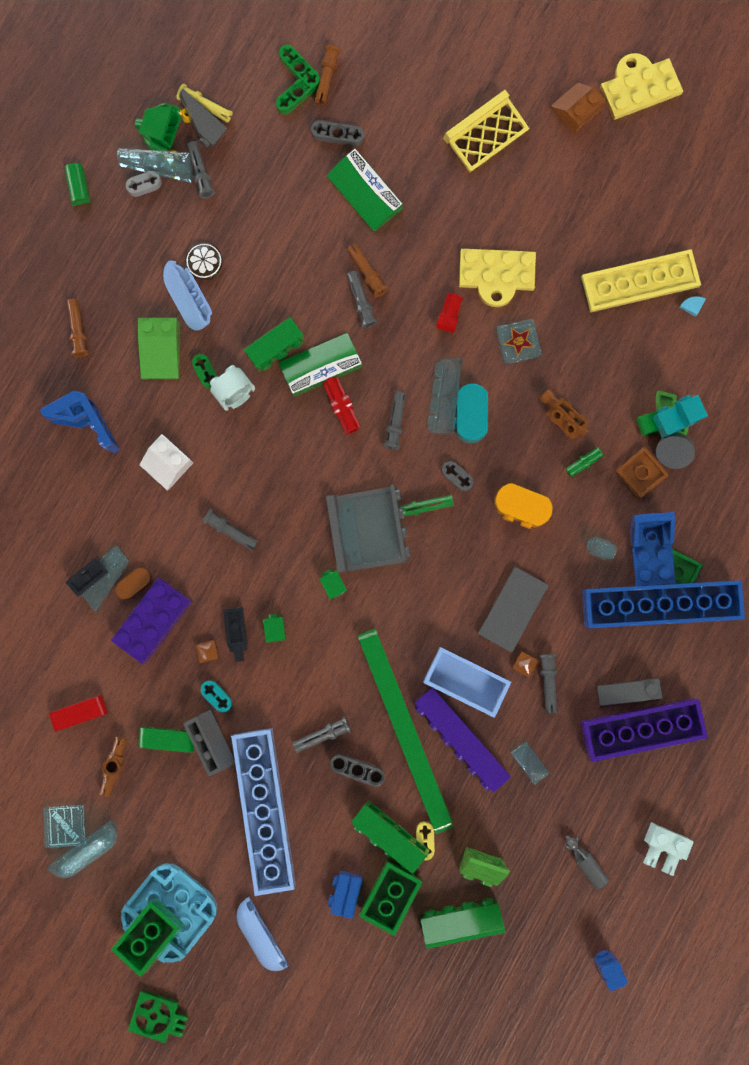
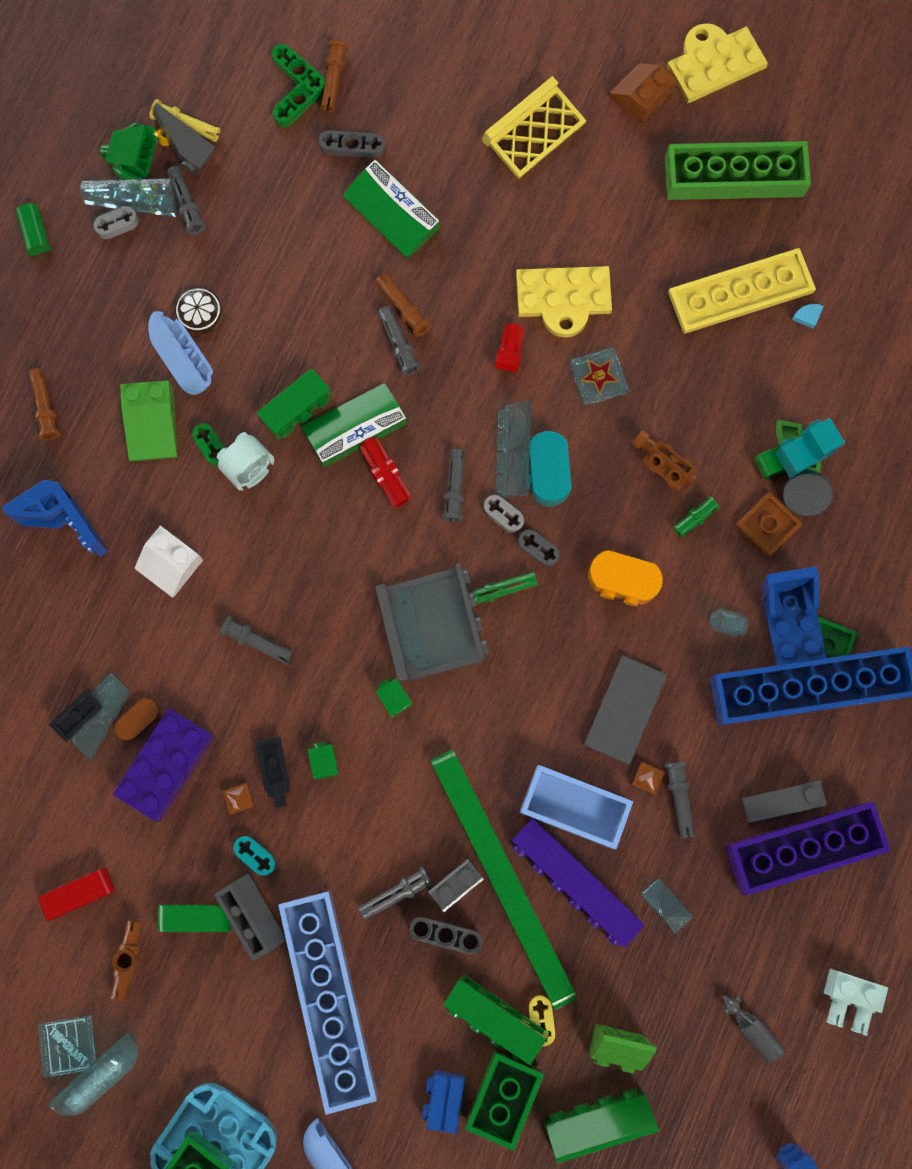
camera: 10 degrees left, 5 degrees down
(368, 733) = (455, 885): none -> dark grey brick
(429, 449) = (507, 509): none -> light grey beam
(648, 180) = (737, 170): none -> bright green brick

